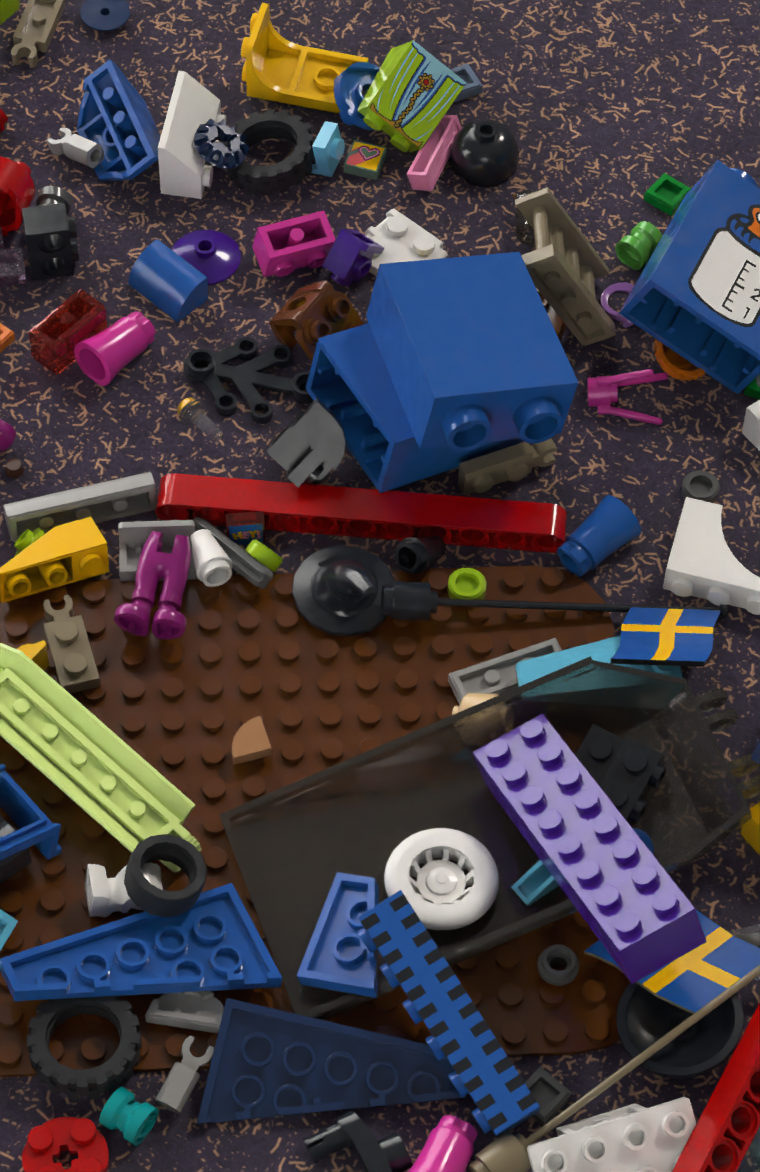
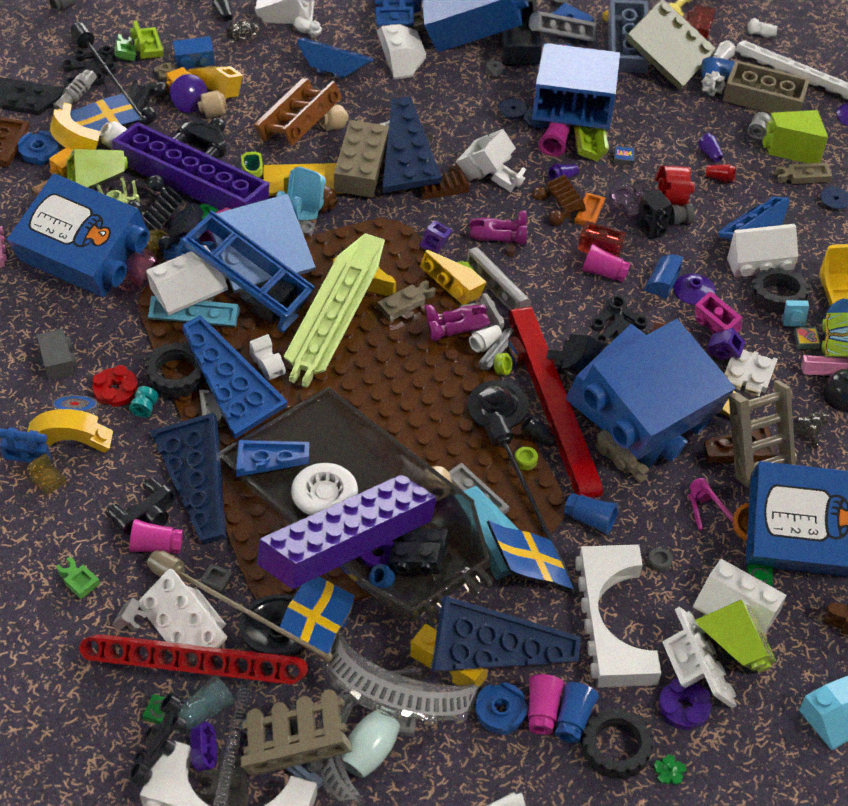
camera: 70 degrees right, 5 degrees down
(77, 148) = (731, 213): light grey bar -> none
(173, 850) = (274, 350): black tyre -> none
(182, 1078) = (171, 416): light grey bar -> none
(192, 412) = (584, 310): clear piece -> none
(217, 153) = (754, 260): dark blue gear -> none
(250, 742) = (380, 389): medium nougat tile -> none
(449, 1015) = (233, 507): blue brick -> none

